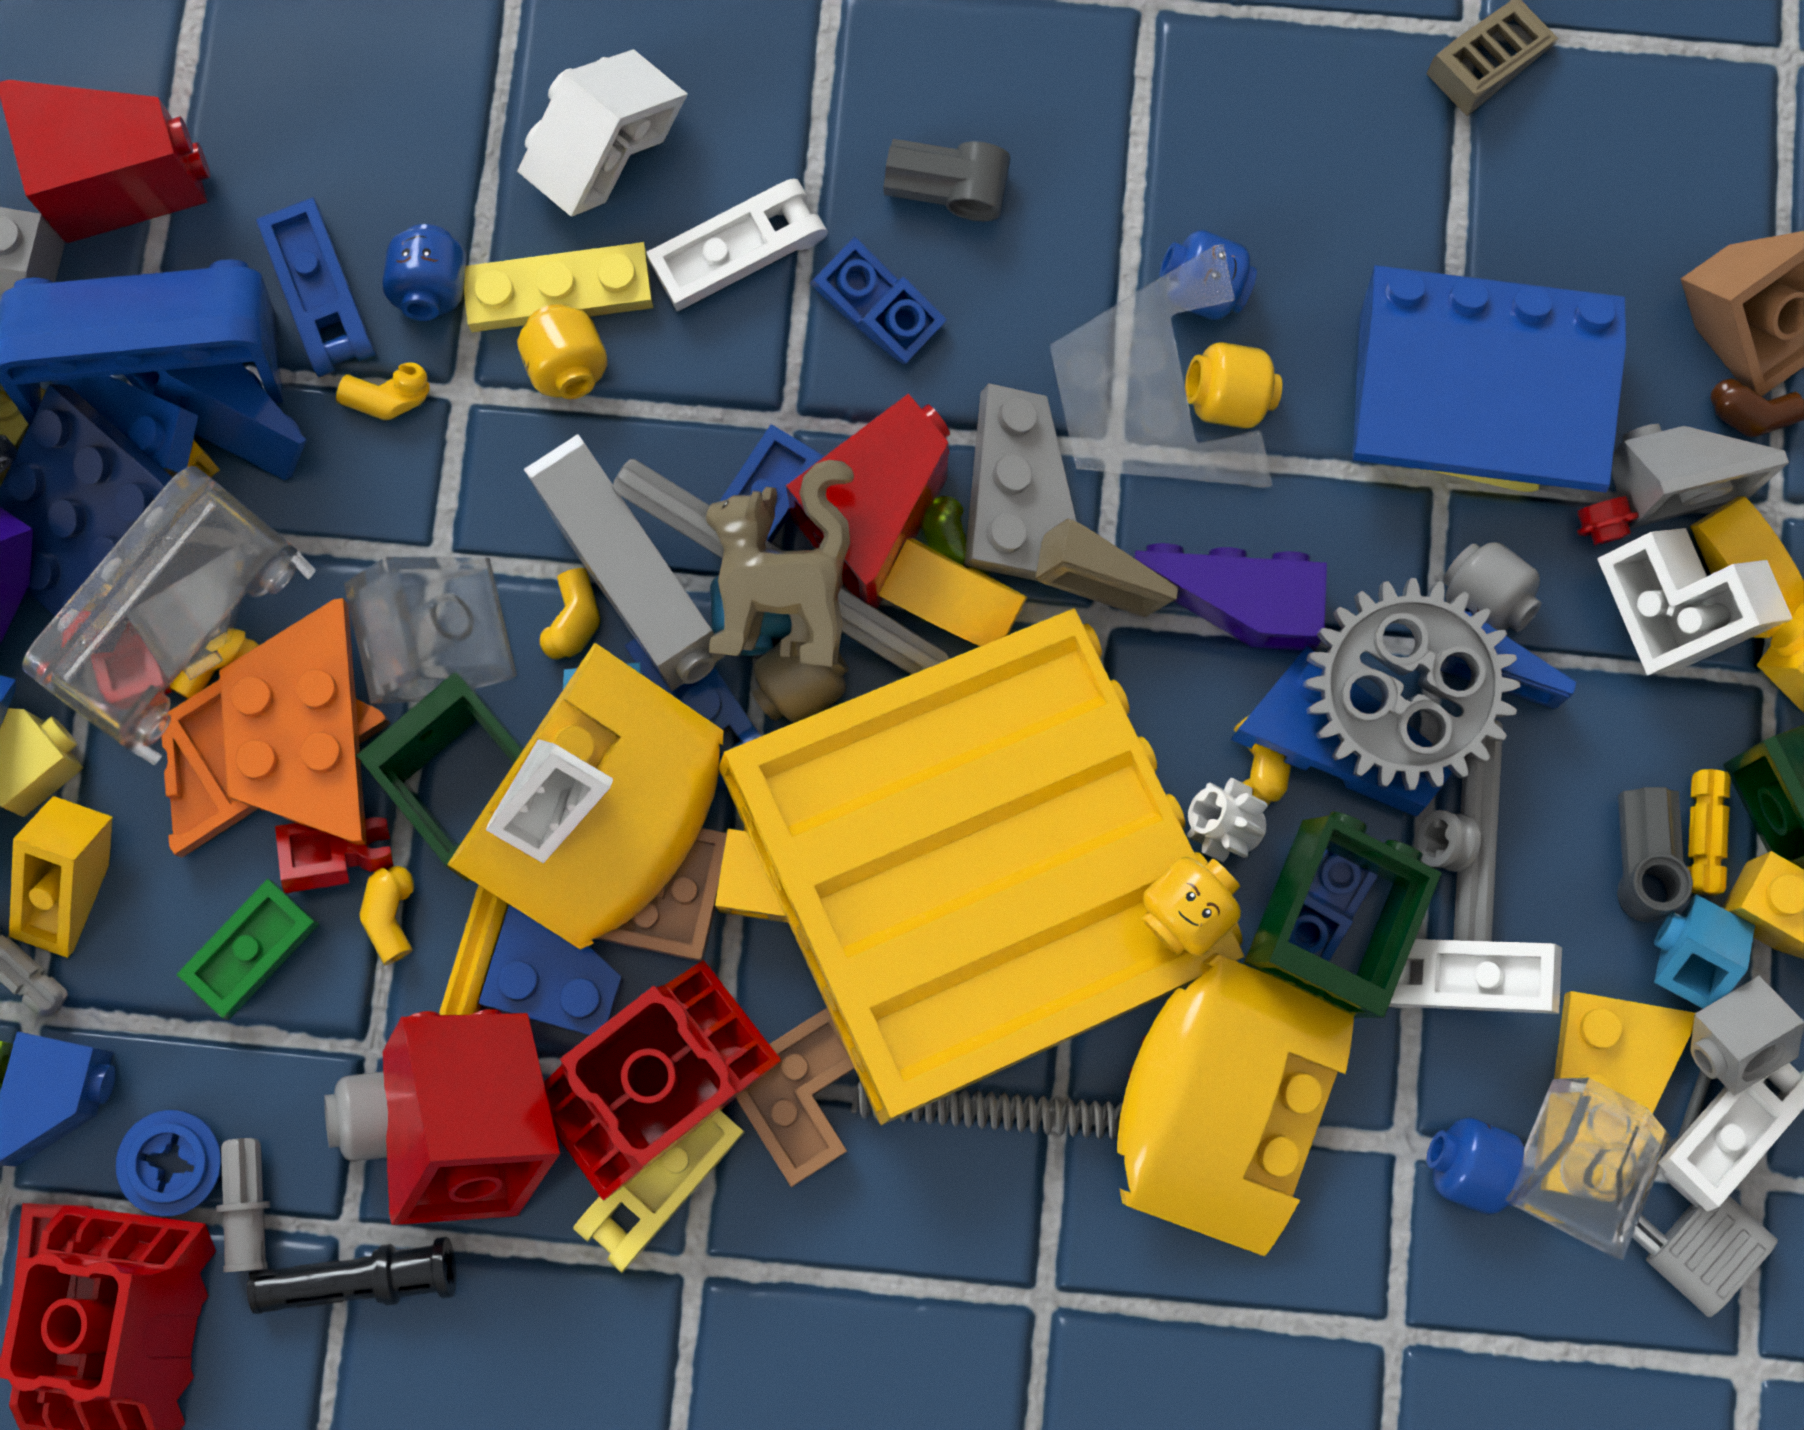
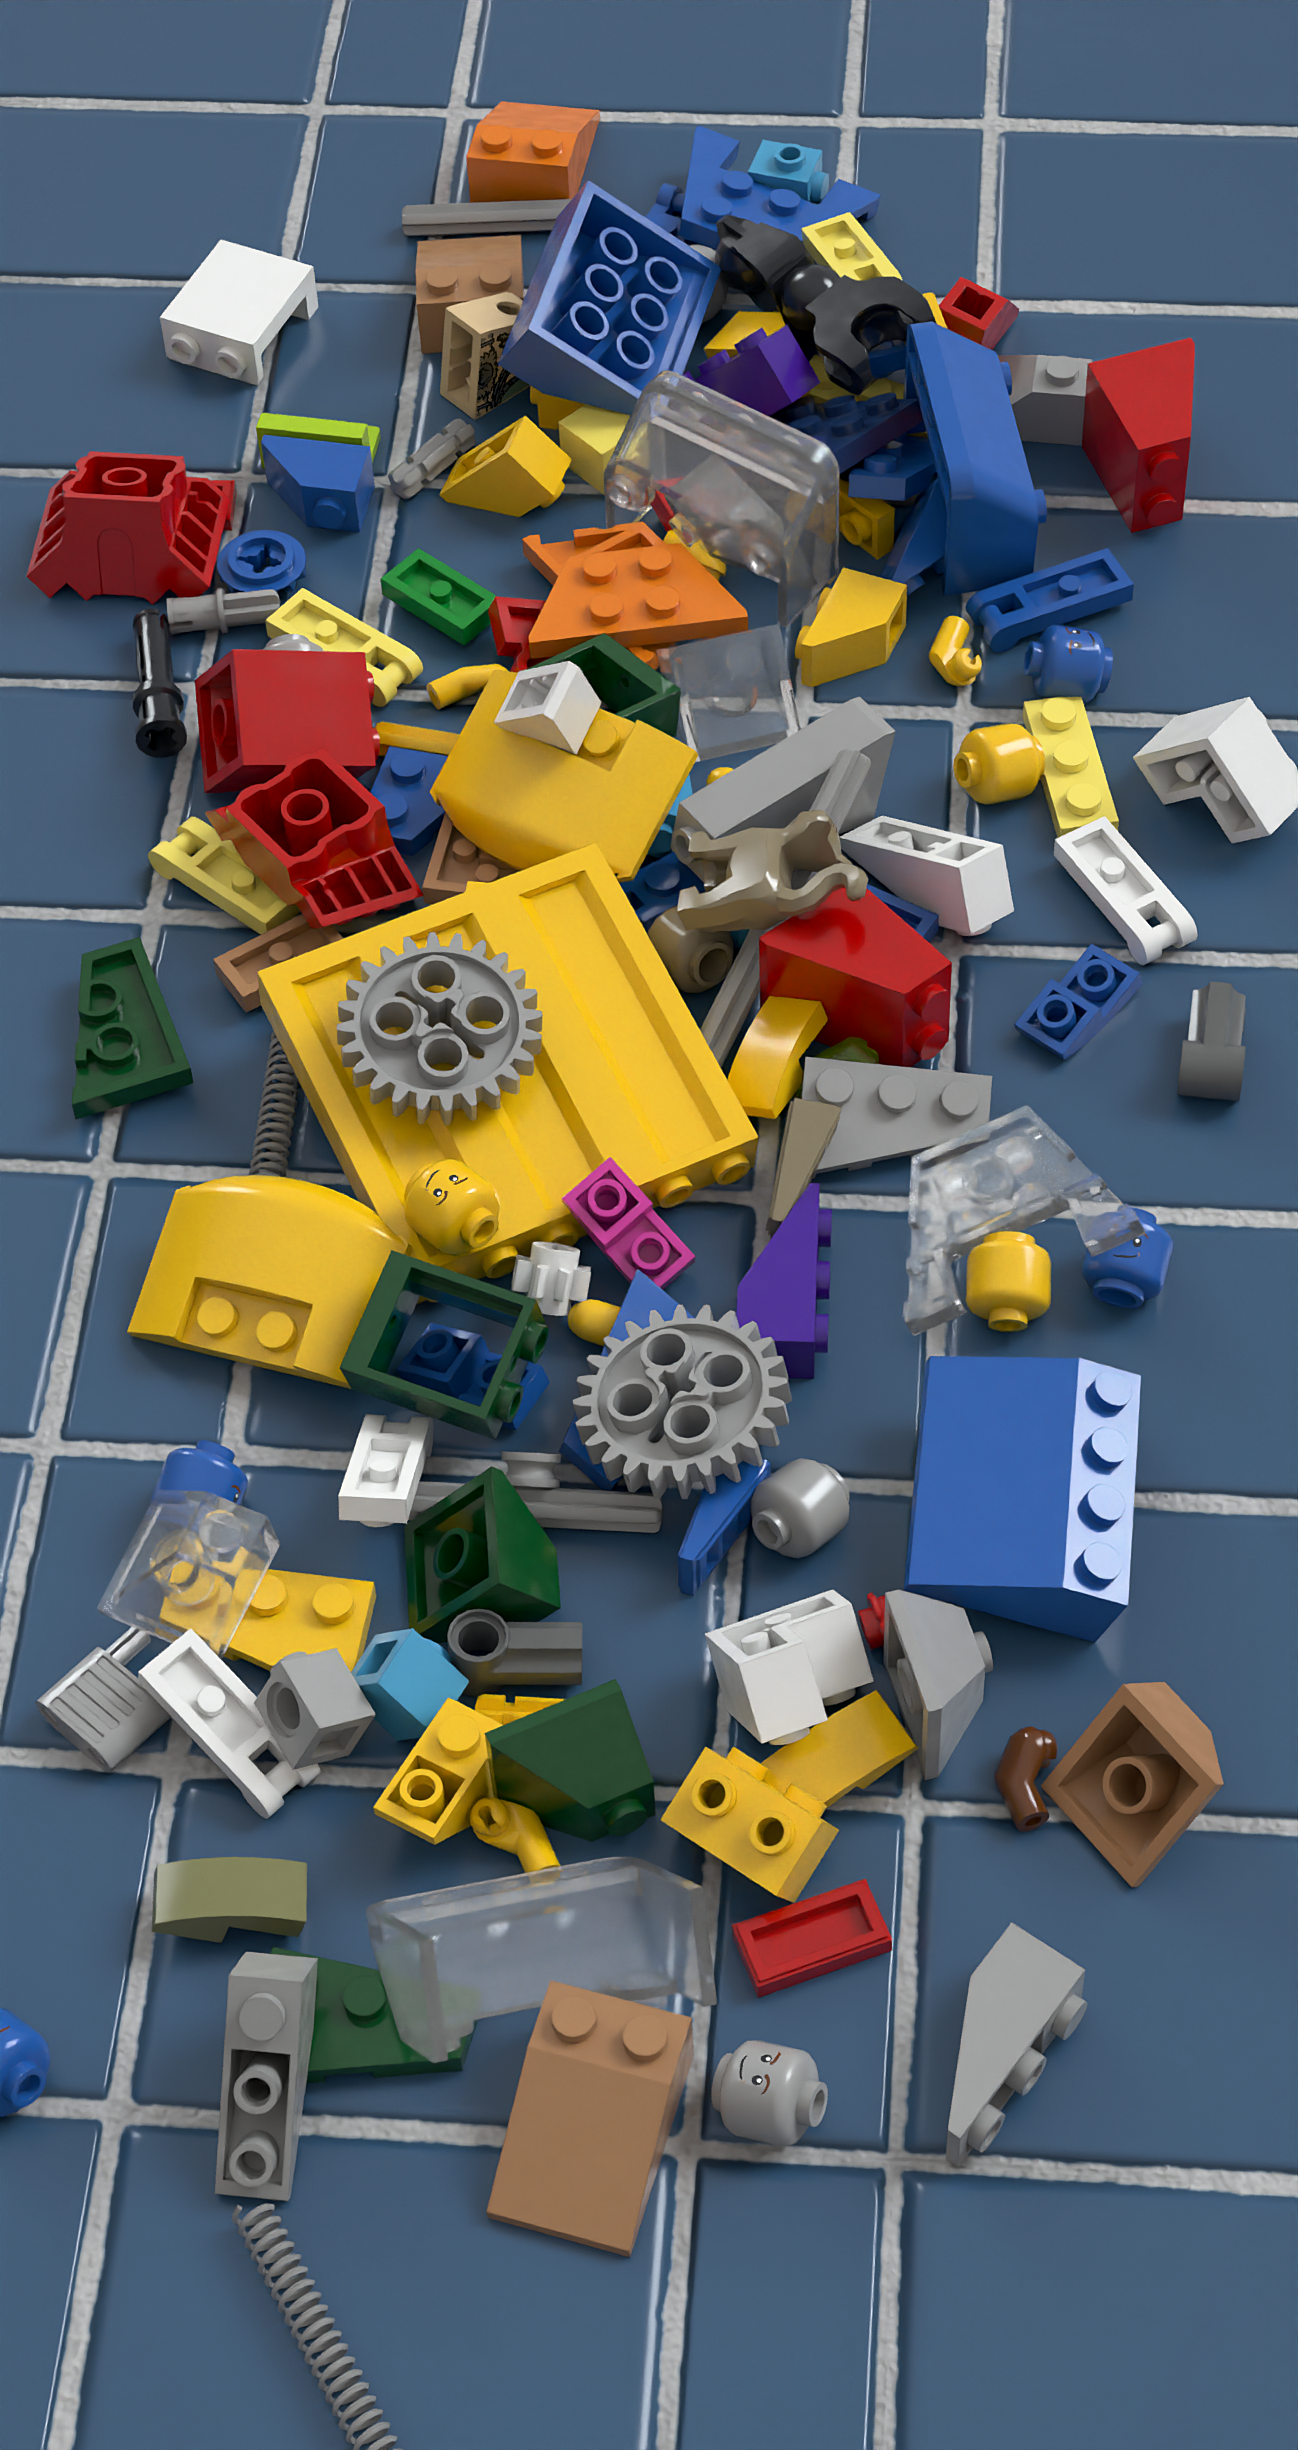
camera: 90 degrees right, 25 degrees down
(313, 1060) = (339, 631): none -> light yellow plate
(342, 489) = (852, 628): none -> yellow slope
(715, 419) = (936, 870): none -> white slope
(876, 1282) = (125, 1032): none -> dark green wing
(936, 878) = (439, 1028): none -> light grey gear
(1180, 739) = (627, 1226): none -> dark pink slope
(1567, 886) = (478, 1554): none -> dark green slope

